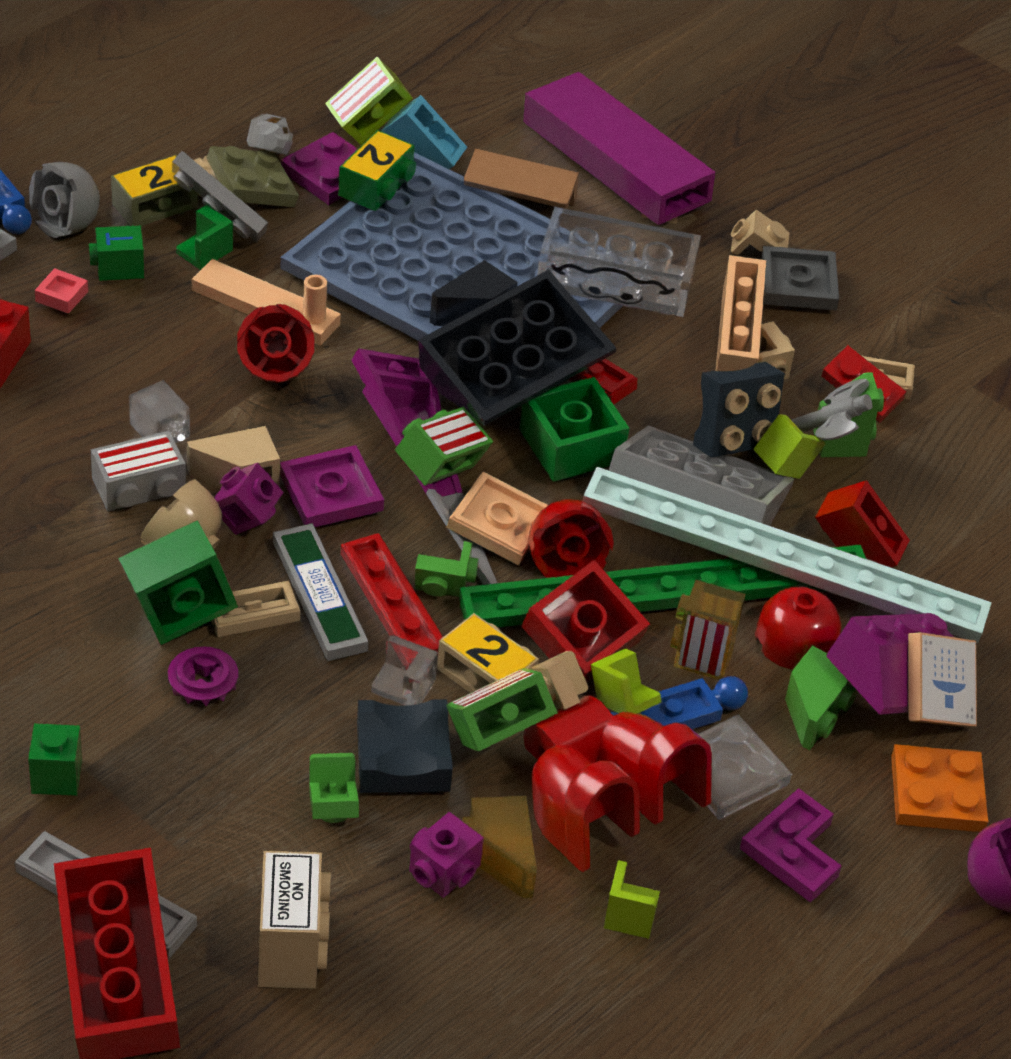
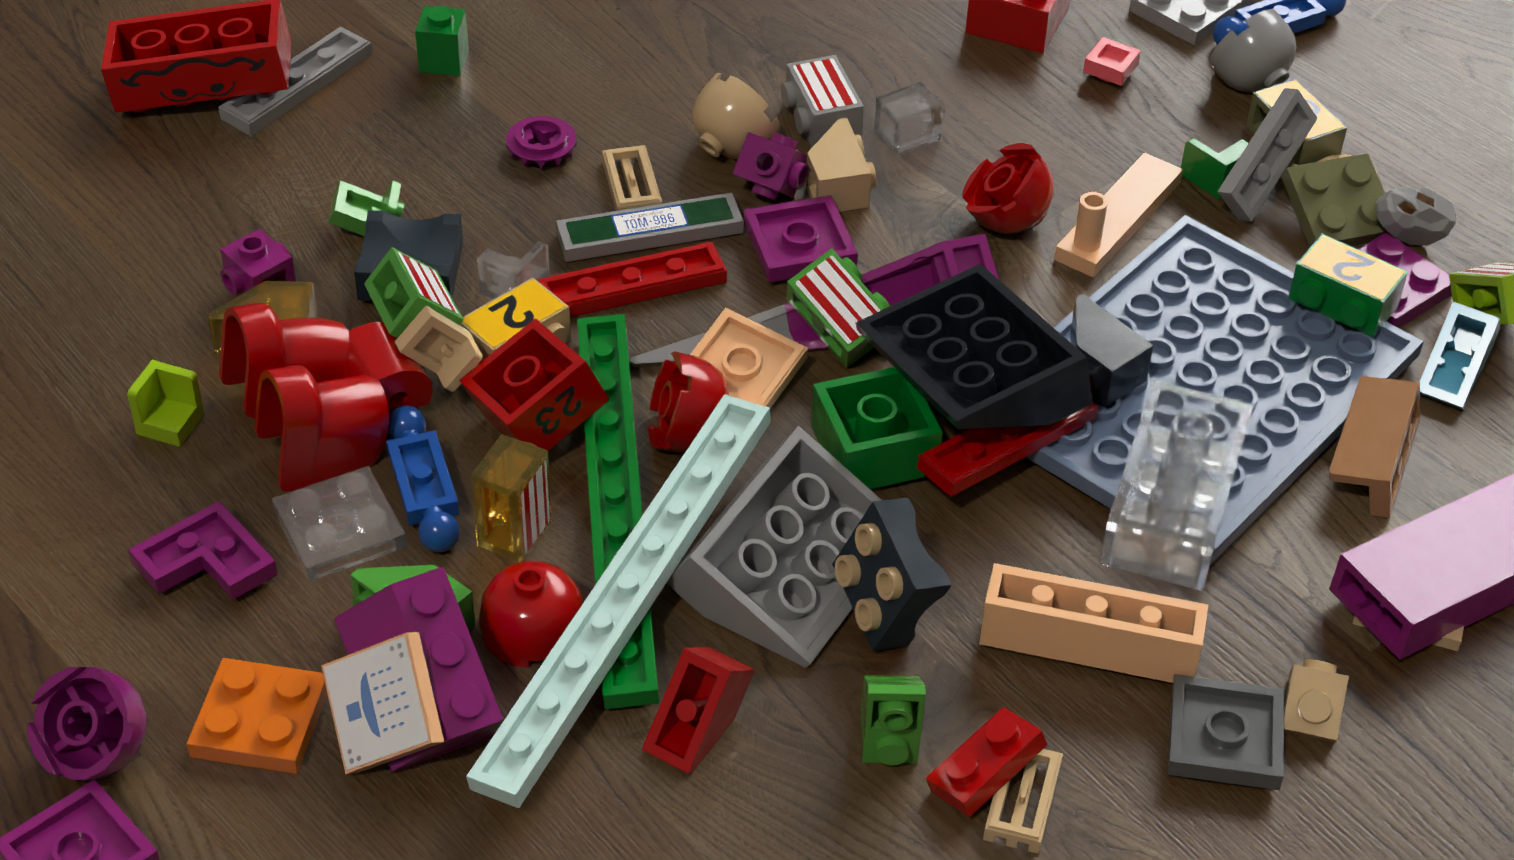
camera: 100 degrees right, 0 degrees up
(118, 253) = (1178, 99): green brick -> none
(179, 582) = (631, 96): green brick -> none
(293, 919) = (201, 153): brick -> none
(445, 576) = (651, 311): bright green bracket -> none
(619, 684) = (439, 412): lime panel -> none
(775, 348) = (1045, 668): tan bracket -> none
(787, 448) = (838, 640): lime panel -> none
(835, 417) = (860, 666): light grey piece -> none

